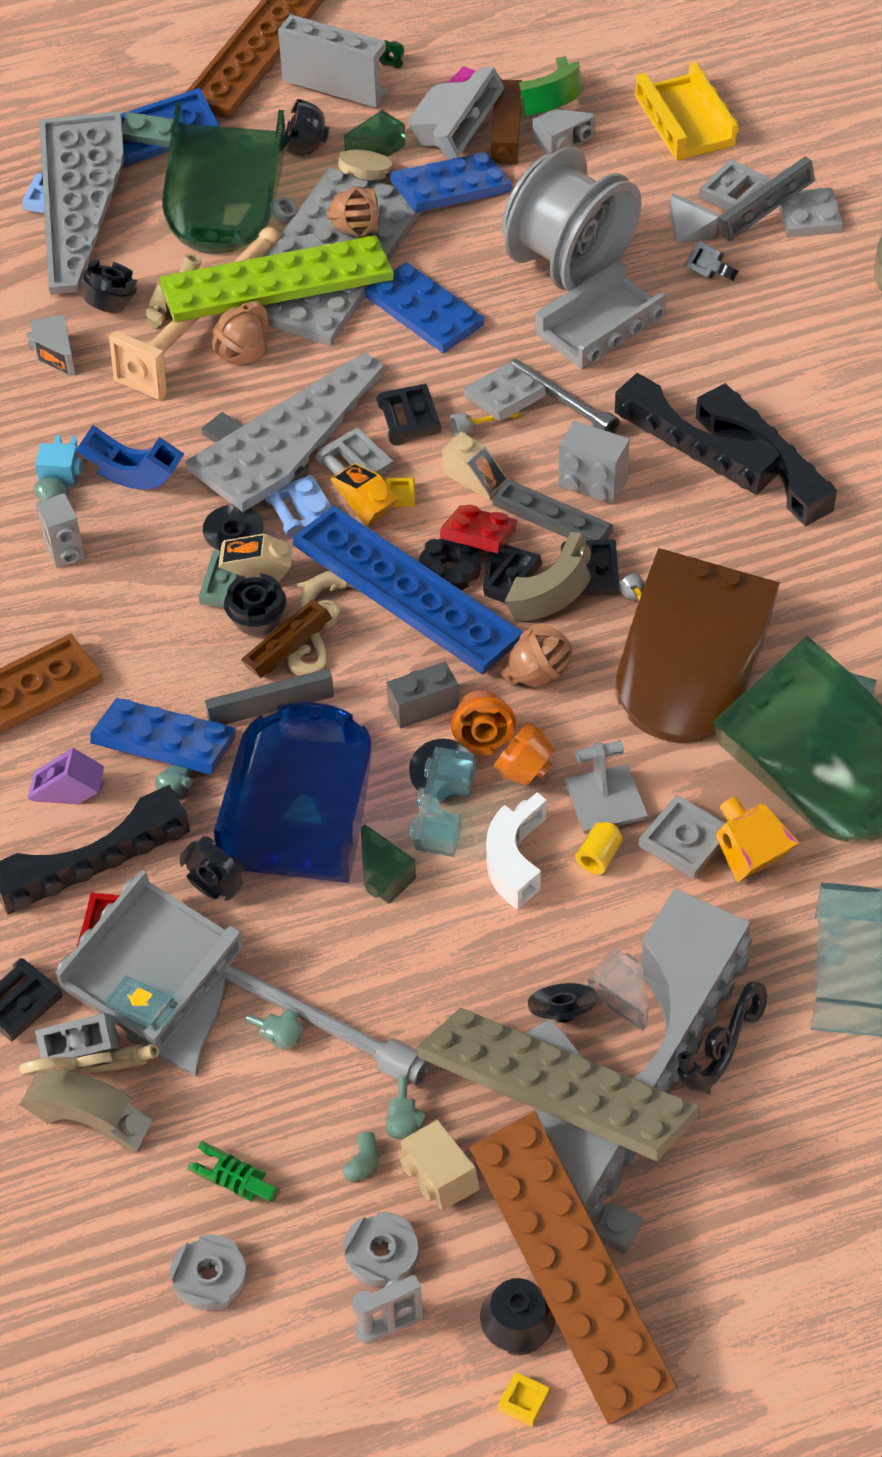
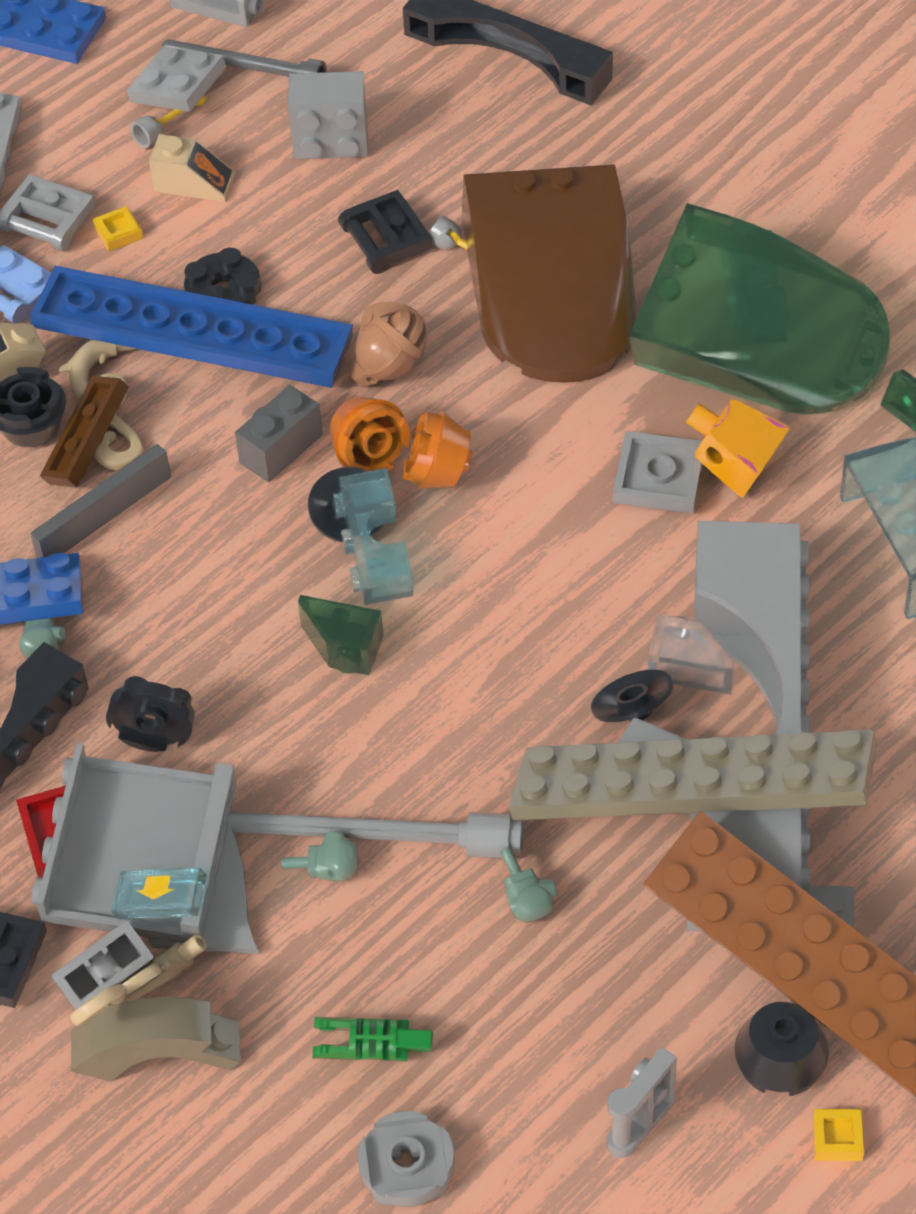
camera: 25 degrees left, 0 degrees up
(297, 793) = (202, 592): clear blue windscreen -> none
(364, 1162) = (512, 958): sand green arm -> none
(365, 493) = (82, 239): light orange slope -> none
(373, 1231) = (591, 1071): light grey plate -> none
(418, 410) = (86, 131): black plate -> none
(439, 1165) = (602, 926): tan brick -> none
(478, 528) = (236, 233): red plate -> none
(504, 567) = (295, 267): black wing -> none
(508, 870) = (479, 578): white arch -> none
(549, 512) = (303, 190): dark grey tile -> none
(556, 587) = (362, 265): dark tan arch -> none
(599, 847) = (574, 520): yellow brick -> none
(605, 793) = (546, 461): light grey plate -> none
(722, 1041) = (830, 709): black plant -> none
(741, 461) = (483, 60): black arch -> none

